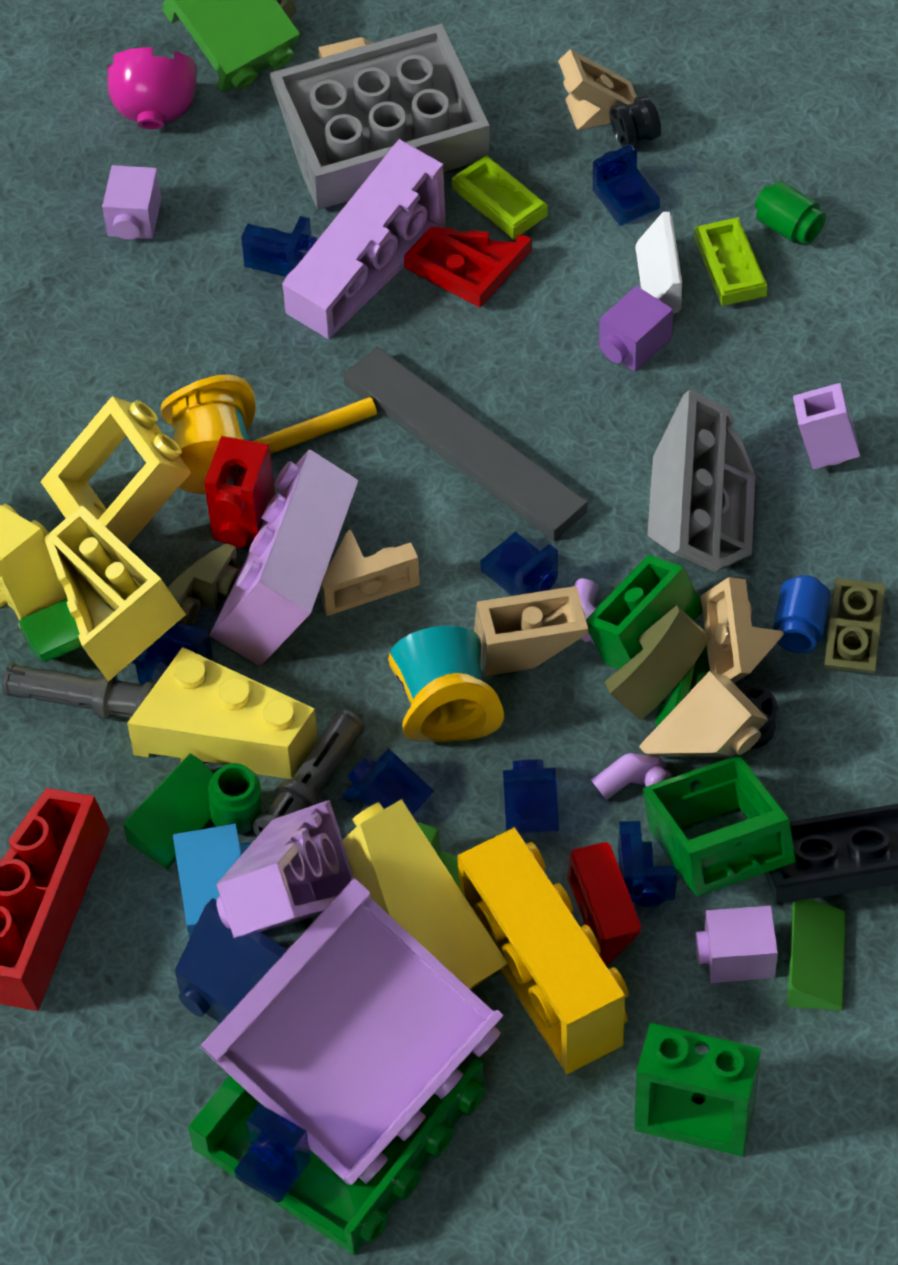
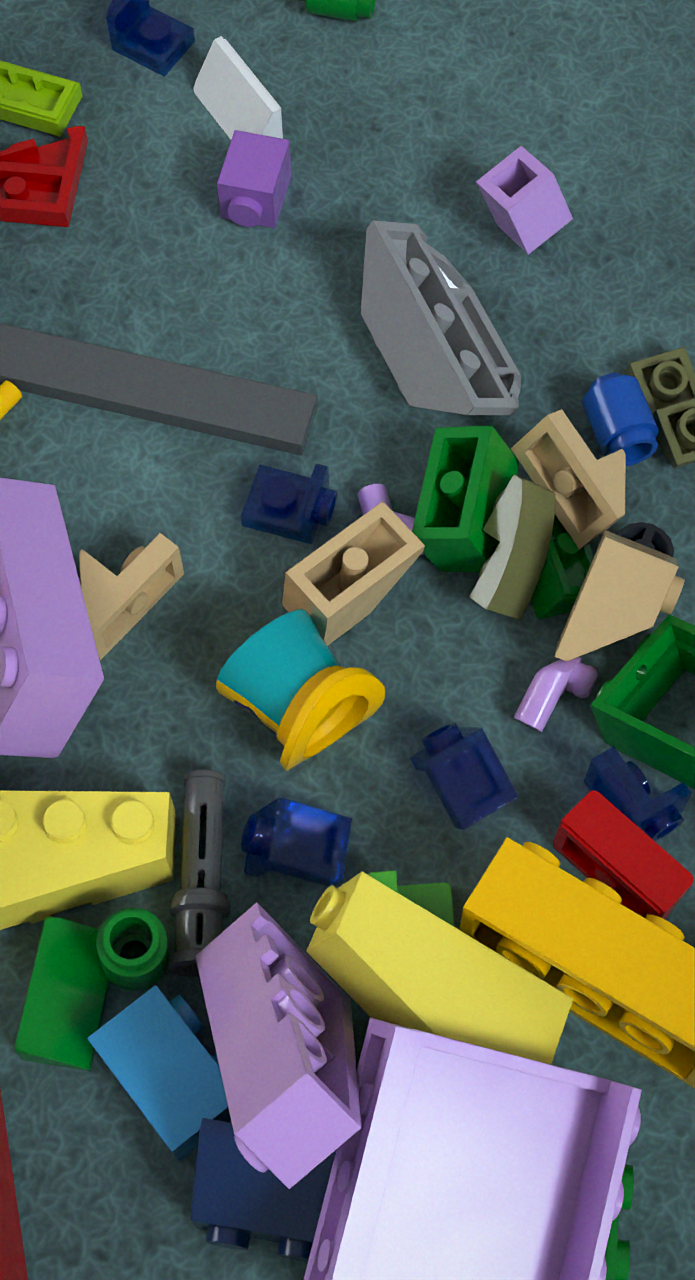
camera: 30 degrees left, 10 degrees up
(730, 261) = (307, 66): lime plate -> none

